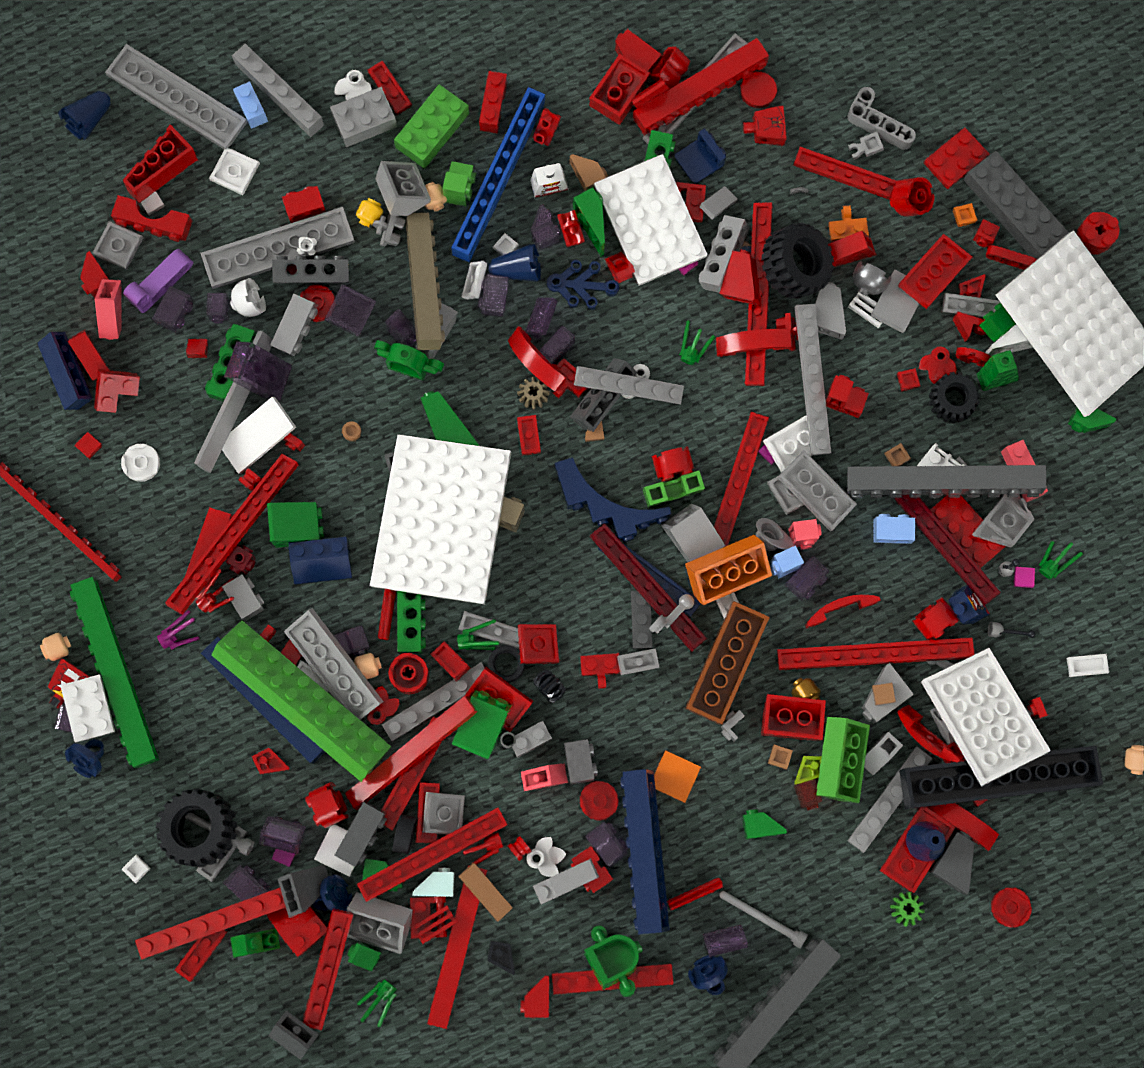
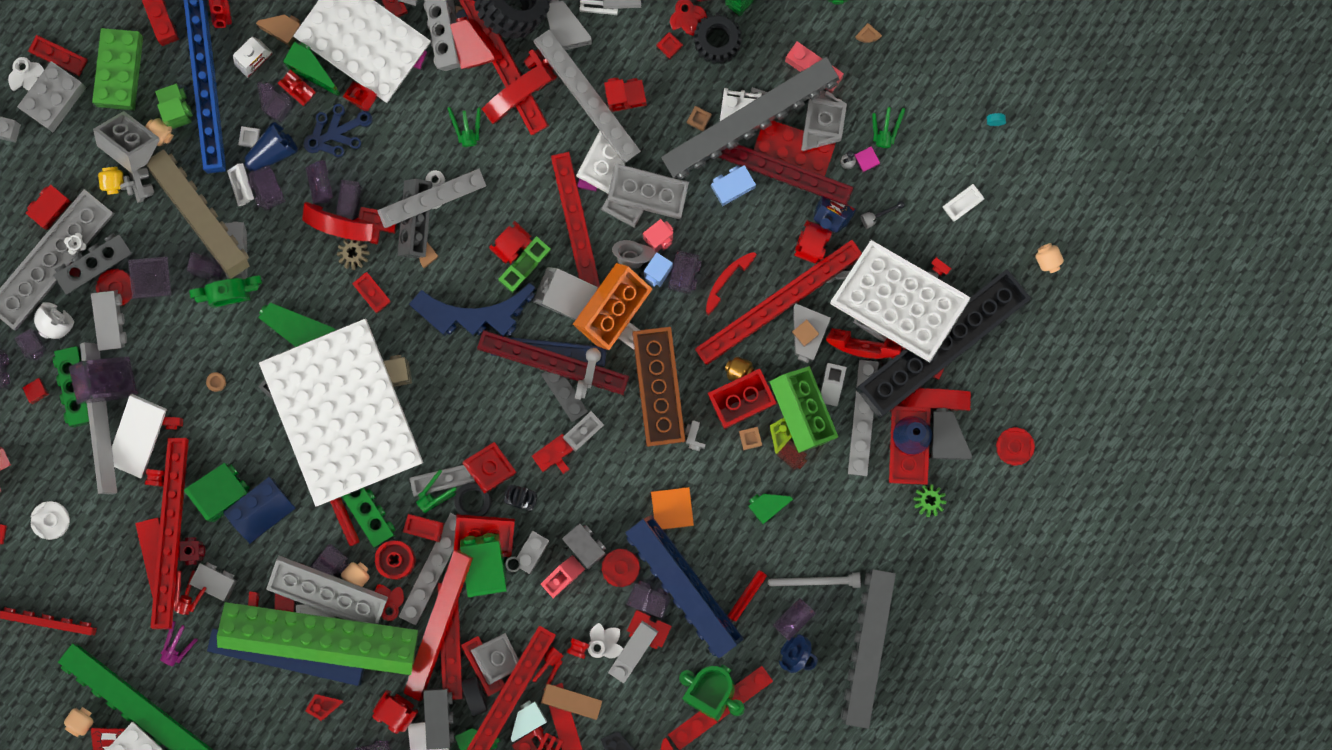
camera: 25 degrees left, 5 degrees up
(1087, 471) = (868, 34): none -> medium nougat tile

